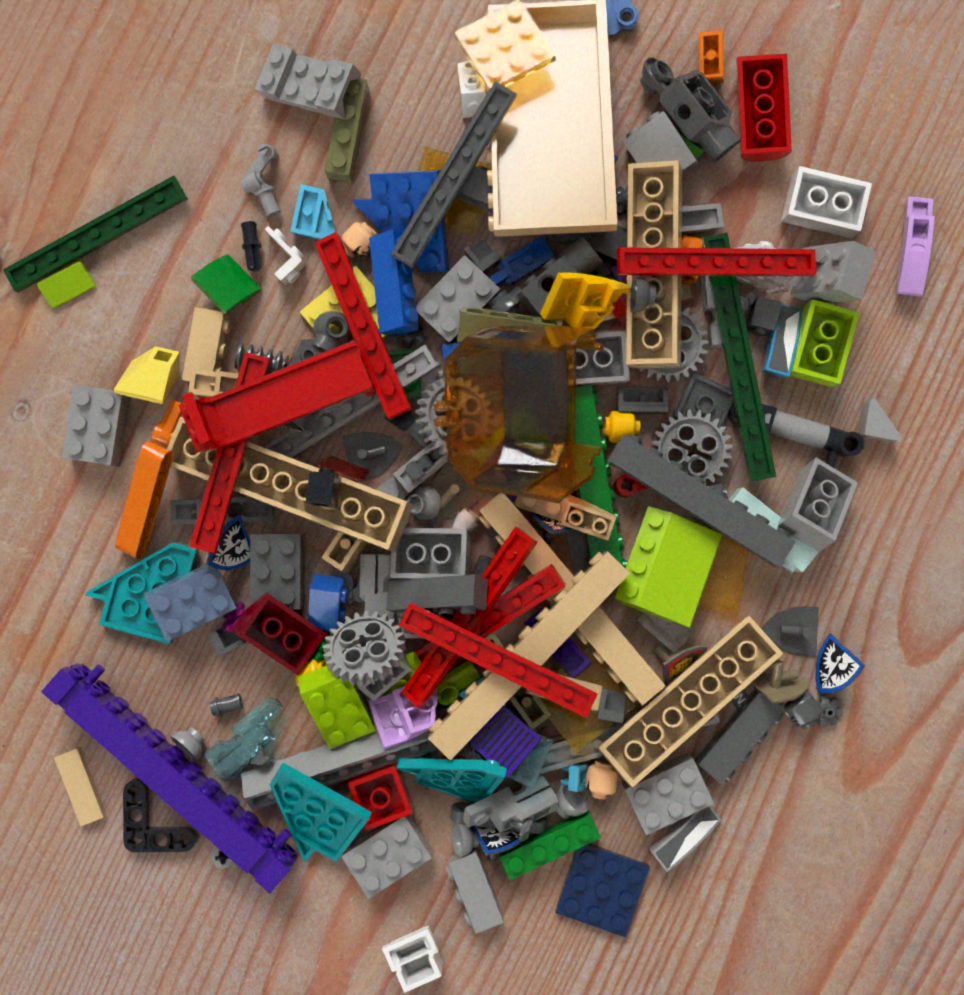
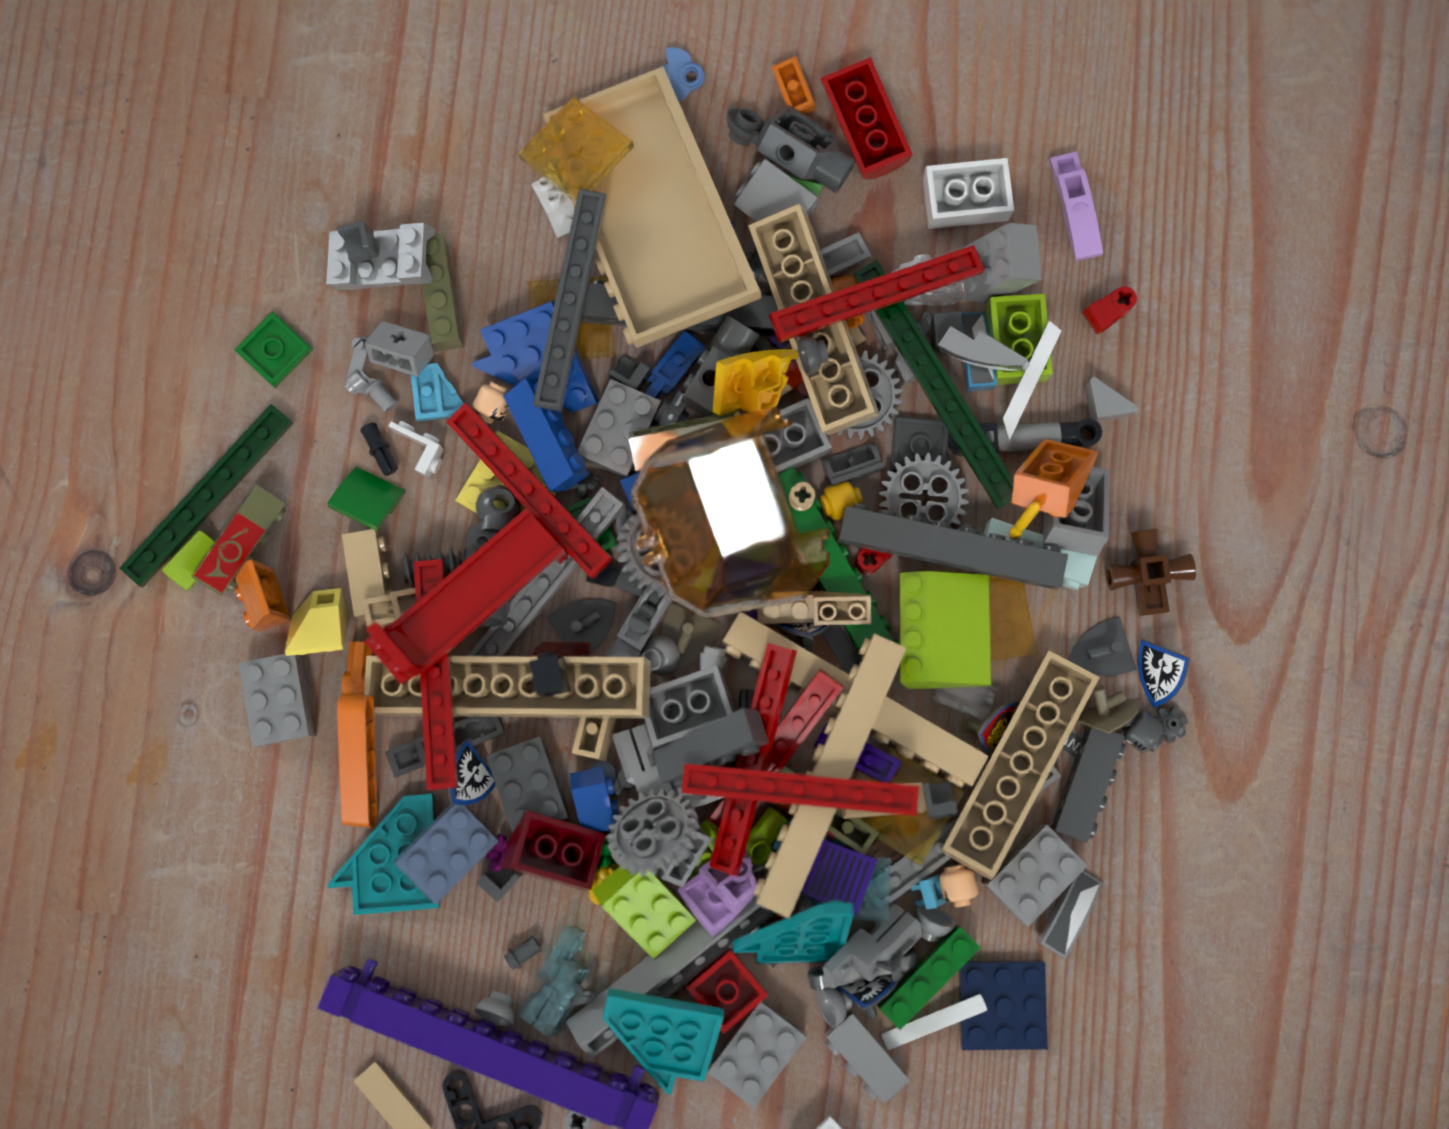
camera: 25 degrees left, 5 degrees down
(108, 281) = (238, 539): none -> brick
(112, 335) = (261, 596): none -> orange slope
(192, 130) = (273, 349): none -> green tile
(293, 61) = (358, 241): none -> dark grey panel
(297, 166) = (399, 348): none -> light grey brick
(542, 882) = (934, 1022): none -> white sticker
(596, 410) = (809, 492): none -> tan bush
(771, 499) = (1025, 519): none -> yellow piece
(787, 343) = (982, 351): none -> light grey slope
(807, 473) = (1053, 477): none -> orange slope
(820, 380) = (1030, 377): none -> white sticker
(858, 581) = (1150, 573): none -> reddish brown brick
(907, 345) = (1108, 311): none -> red piece

